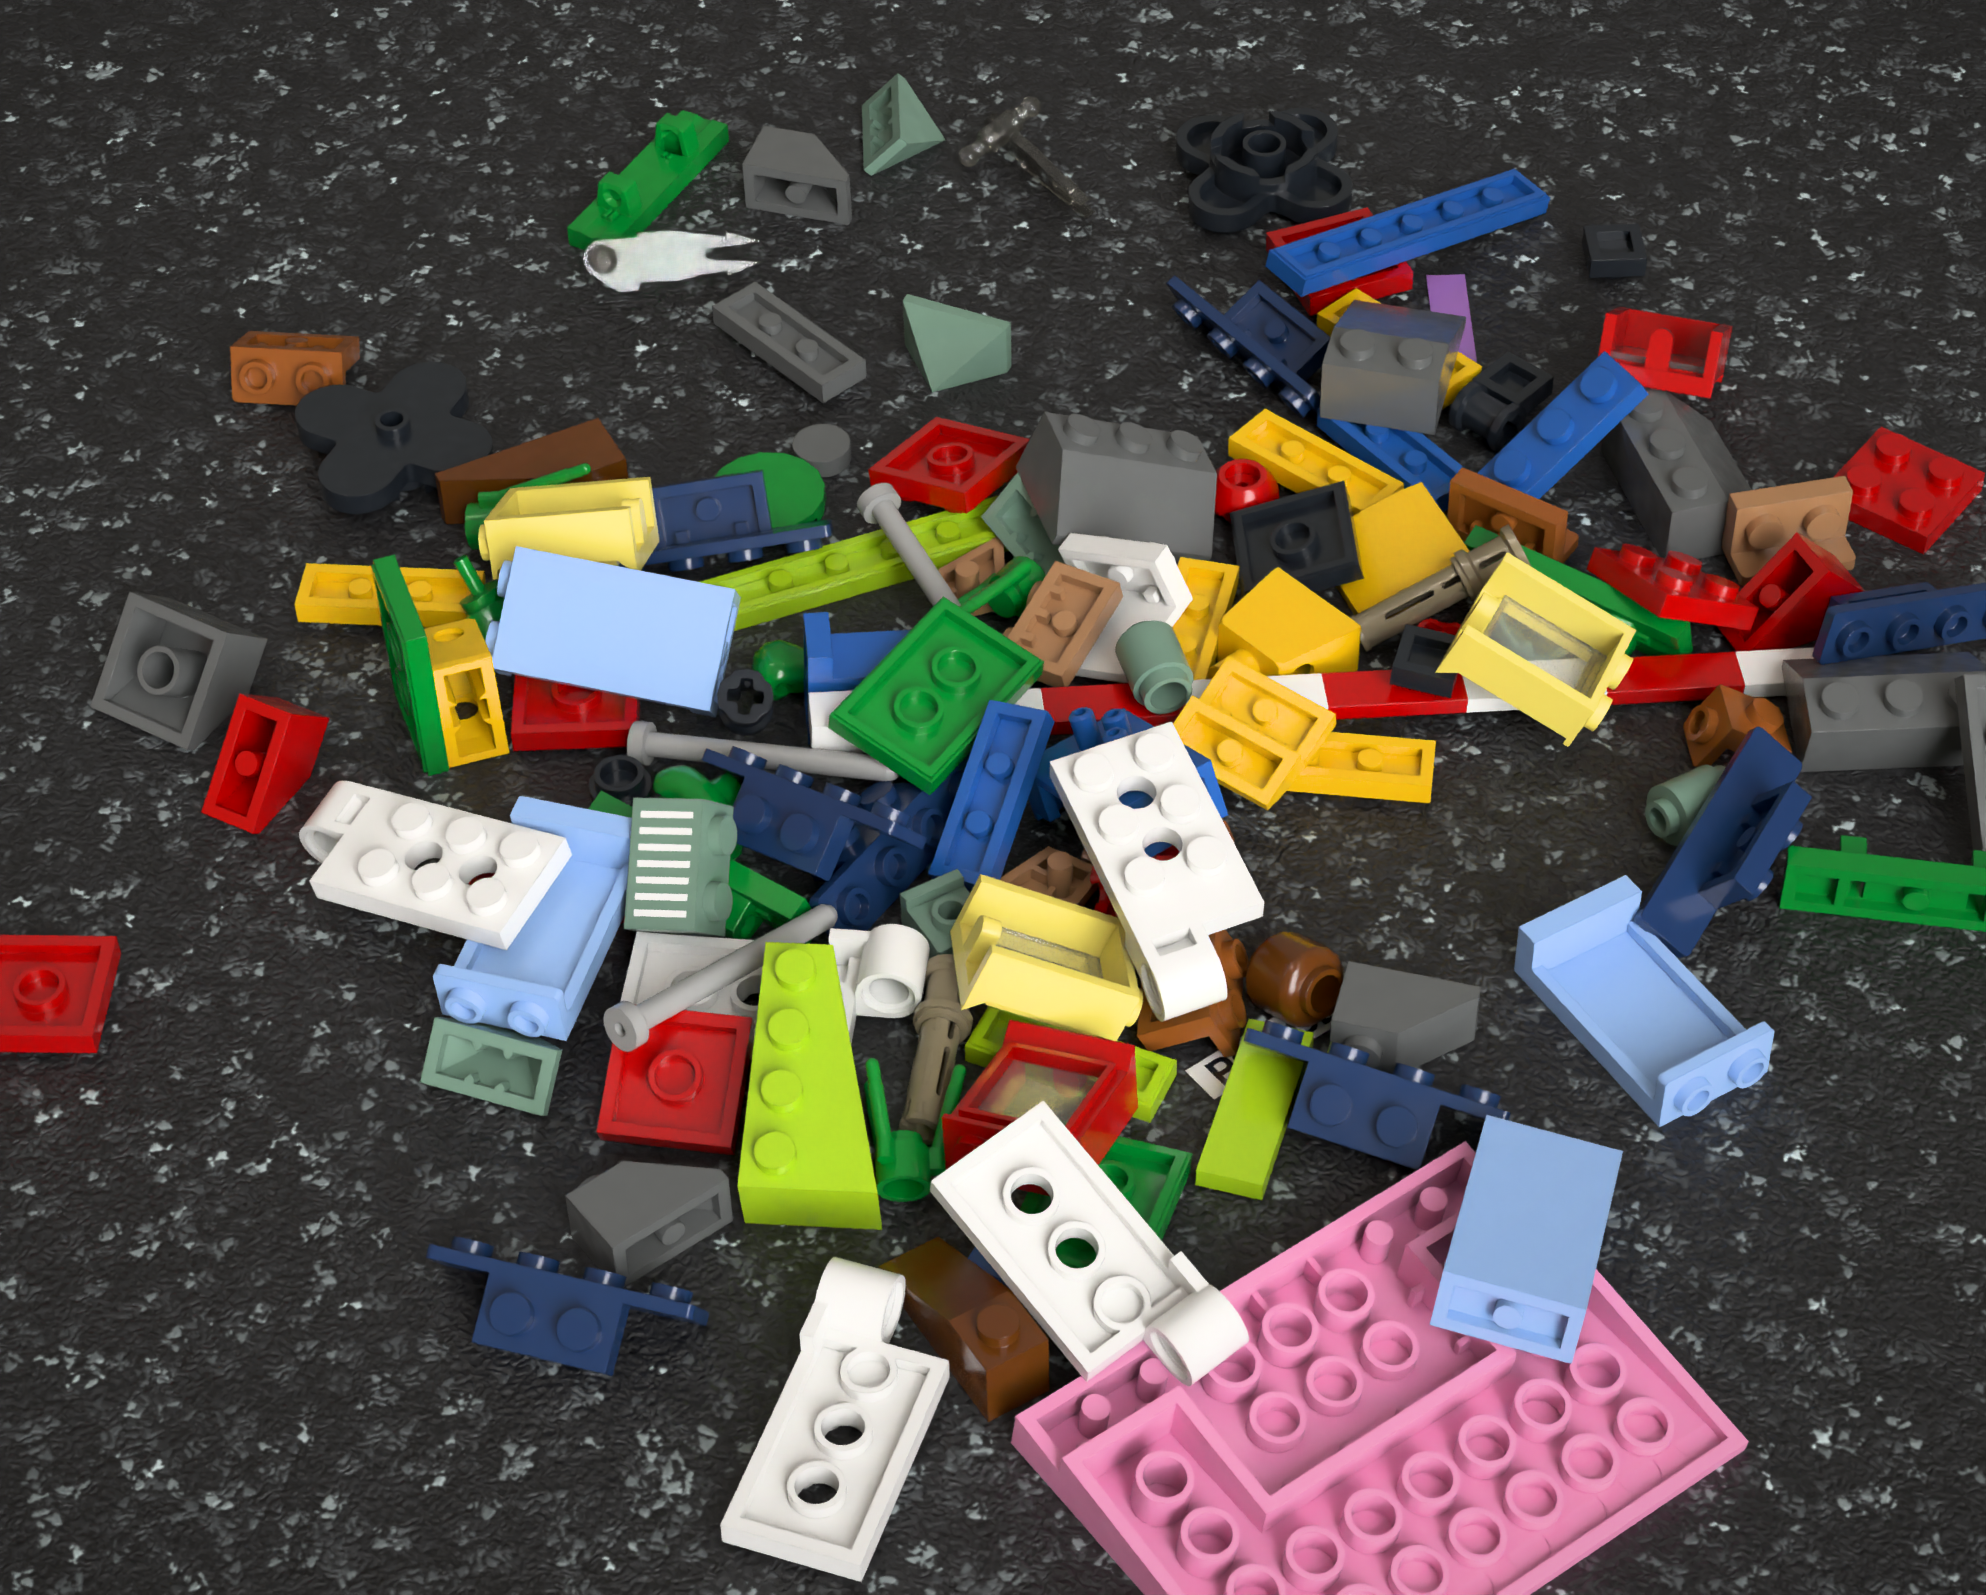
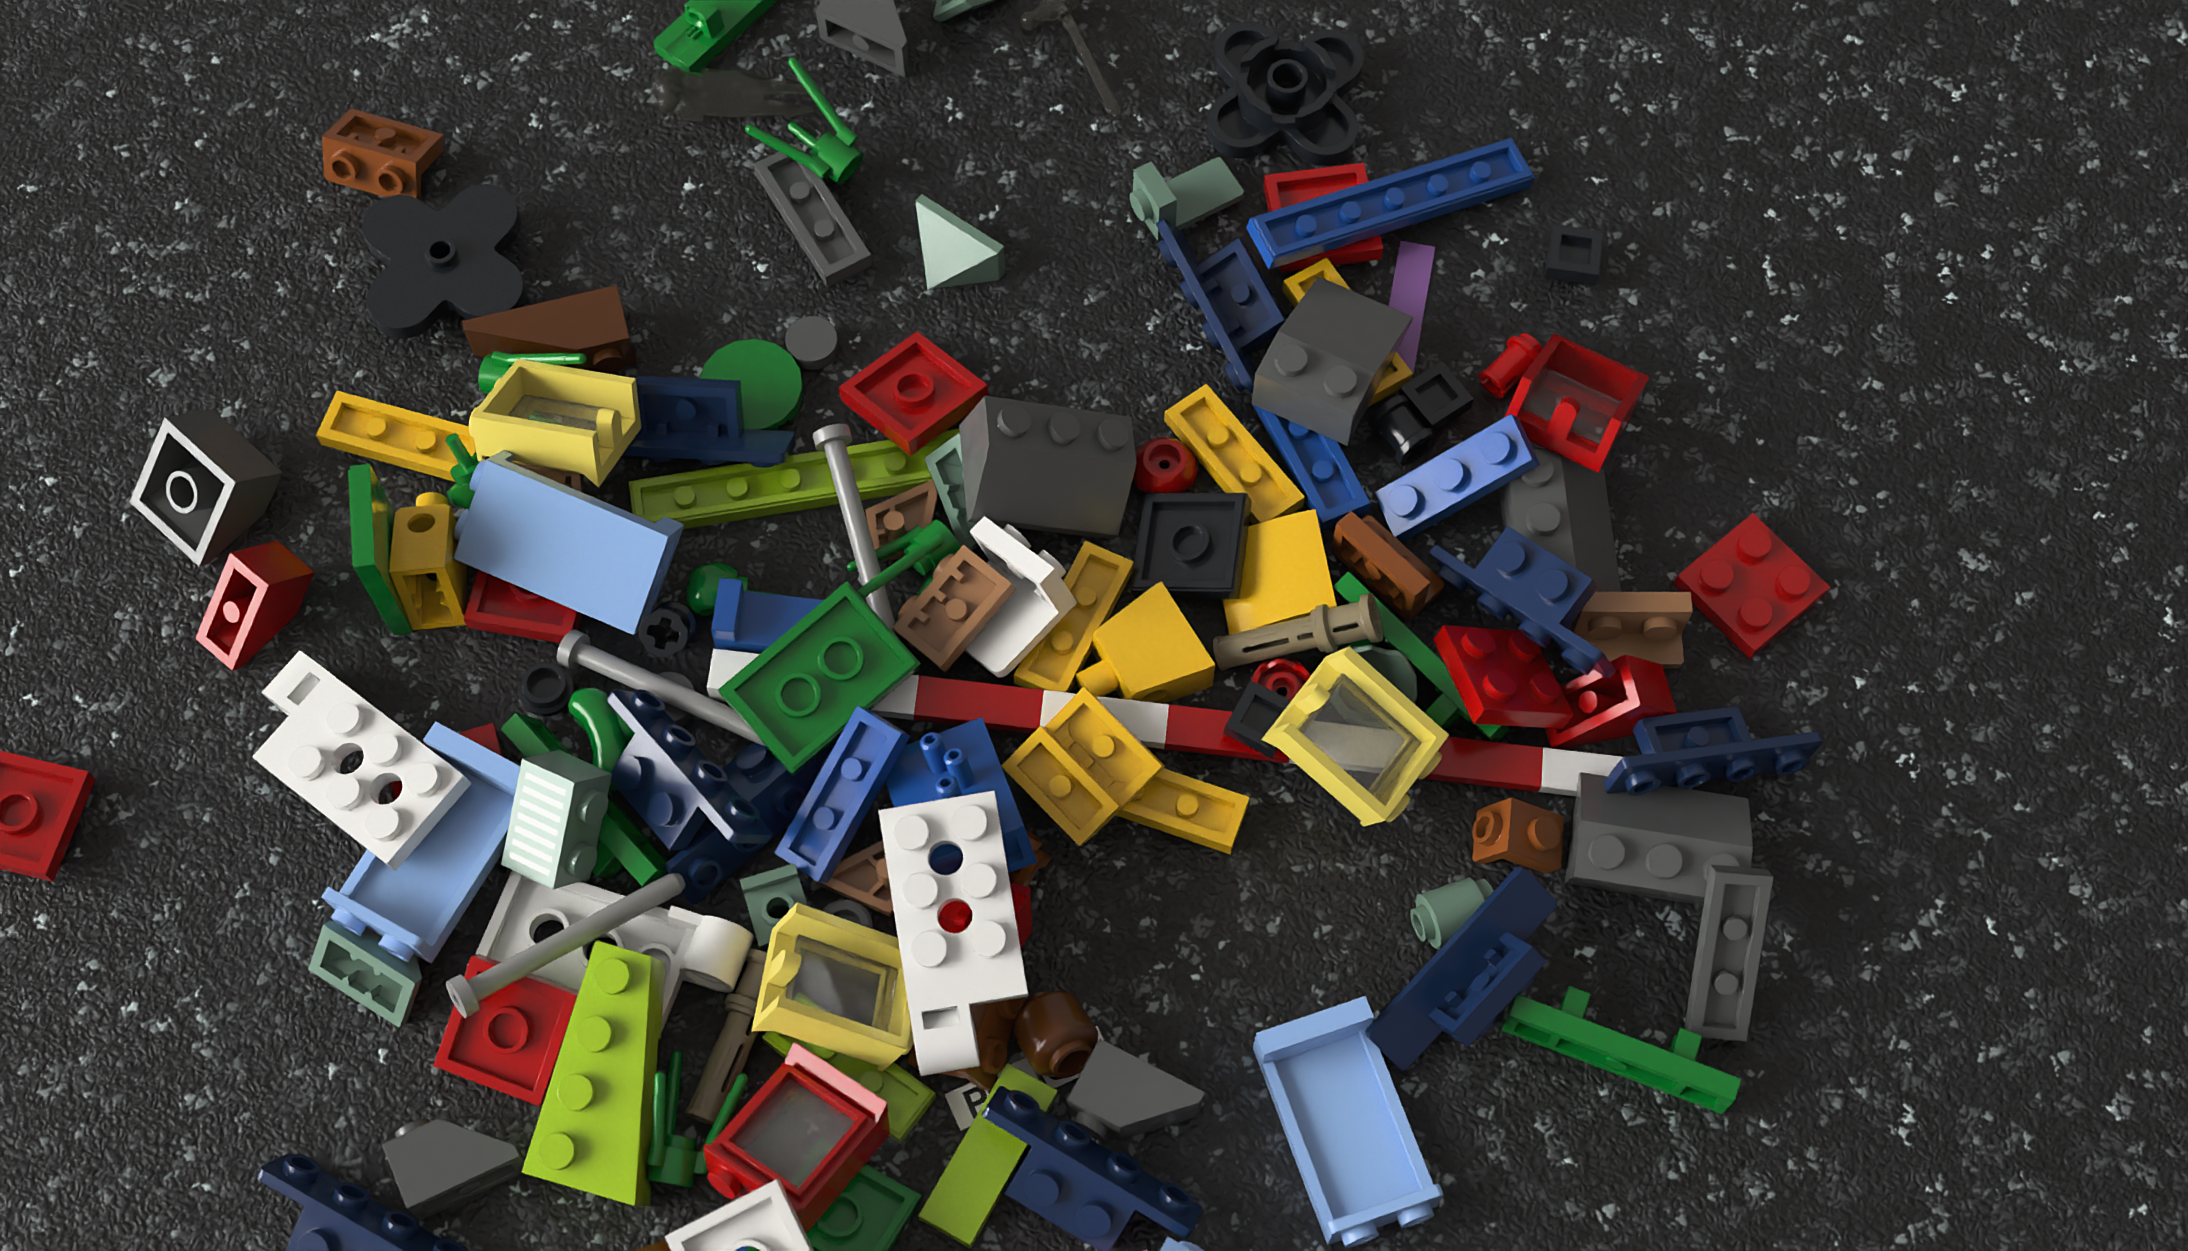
camera: 10 degrees right, 20 degrees up
(796, 284) = (831, 154): none -> green plant
(1155, 666) = (1017, 683): sand green brick -> none
(1197, 263) = (1184, 197): none -> sand green bracket
(1580, 348) = (1510, 365): none -> red pin
(1677, 504) = (1534, 589): none -> dark blue bracket

